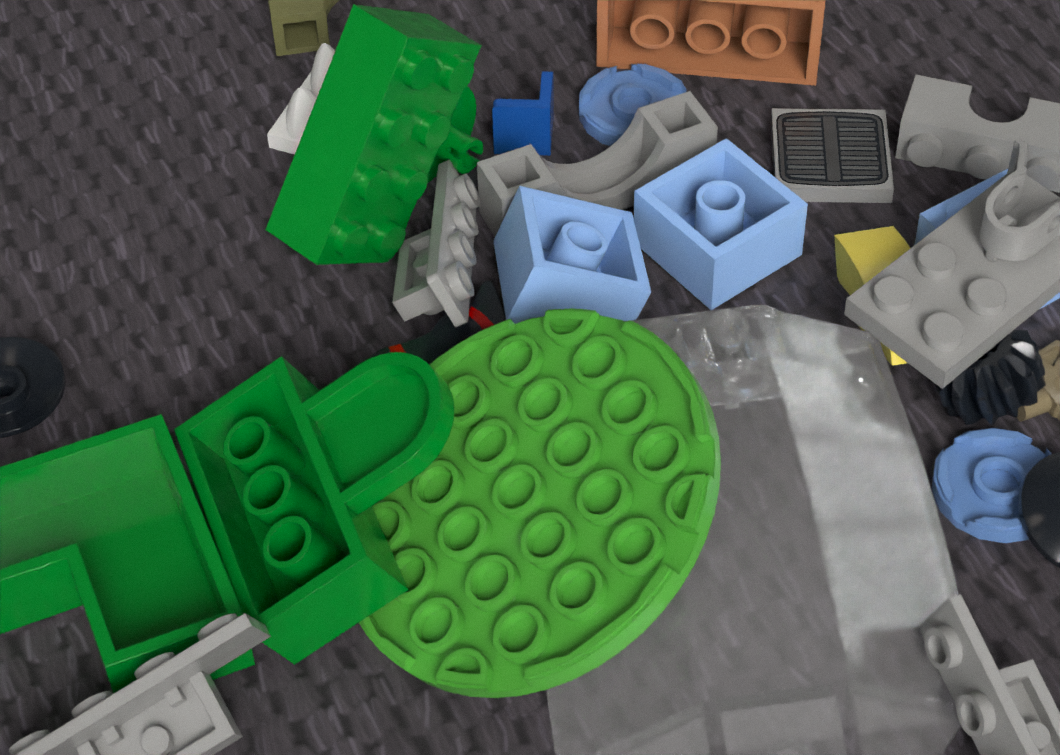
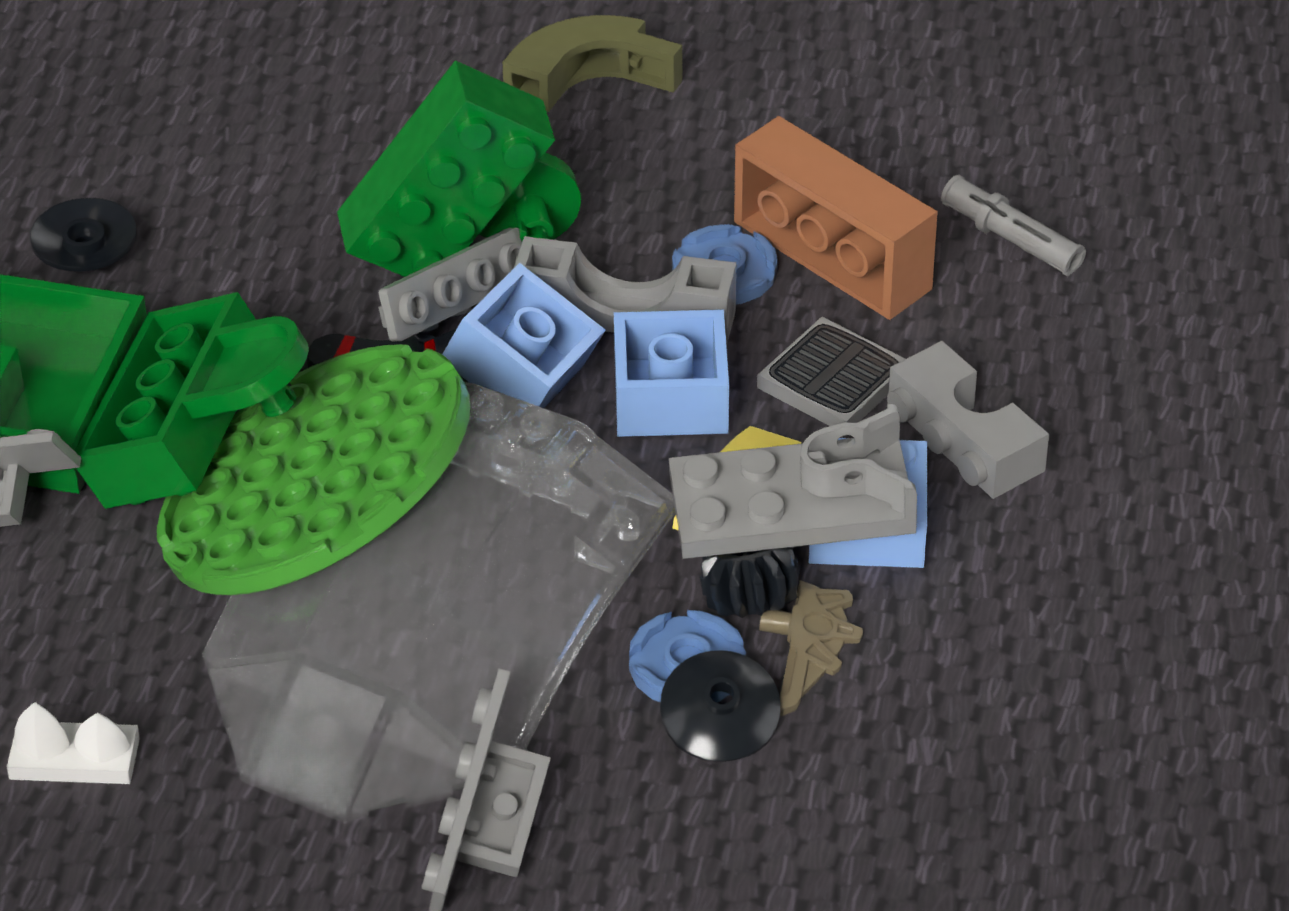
camera: 35 degrees right, 5 degrees down
(525, 120) = (622, 235): blue panel -> none

